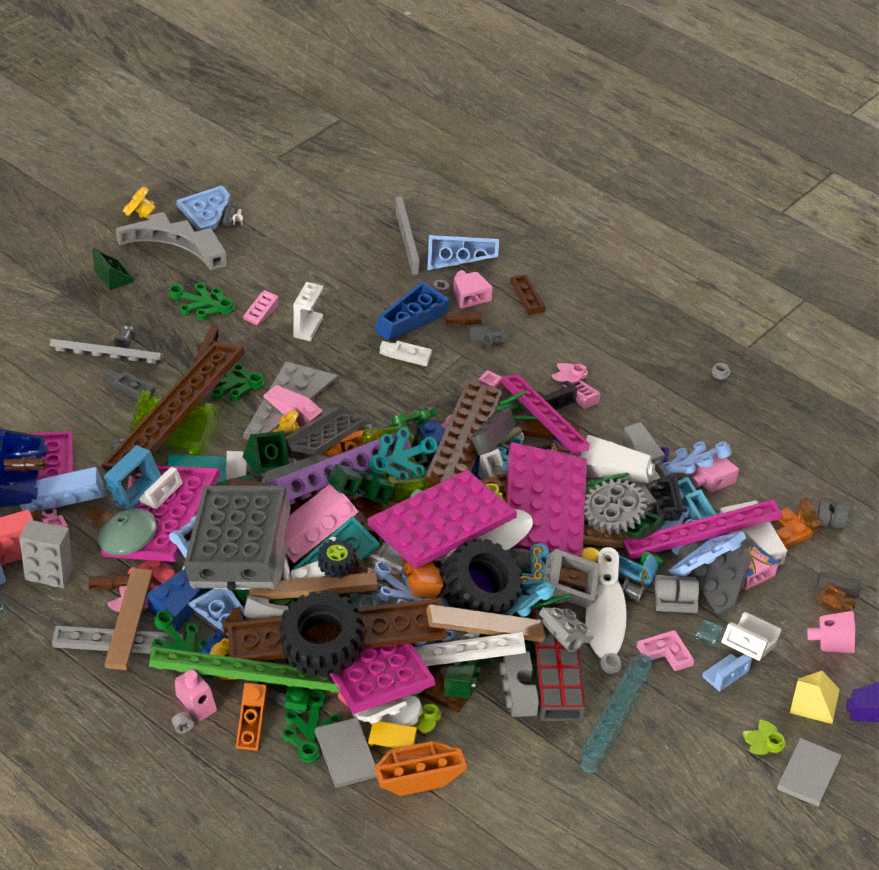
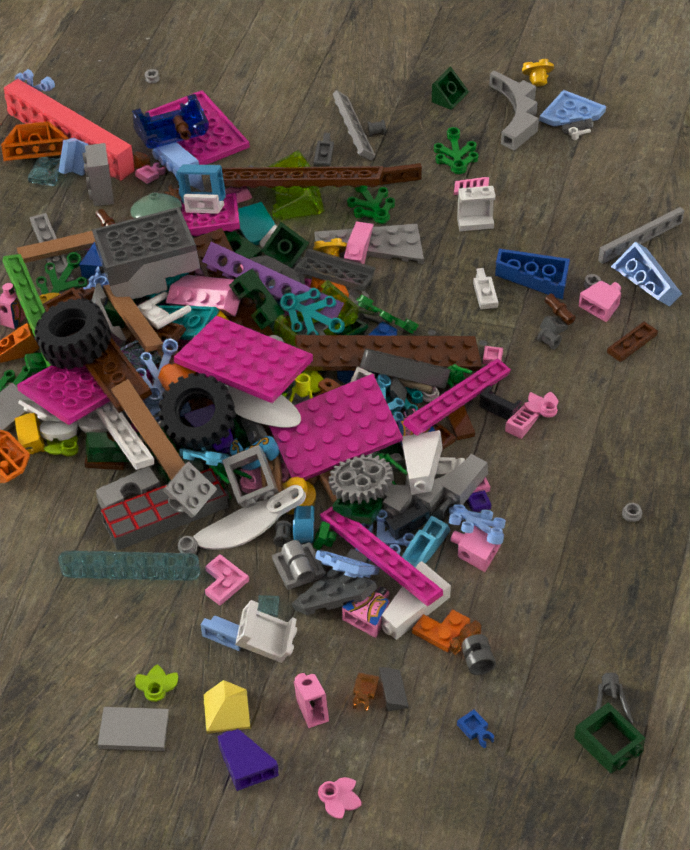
camera: 70 degrees right, 5 degrees up
(336, 558) = (159, 313): black wheel -> none

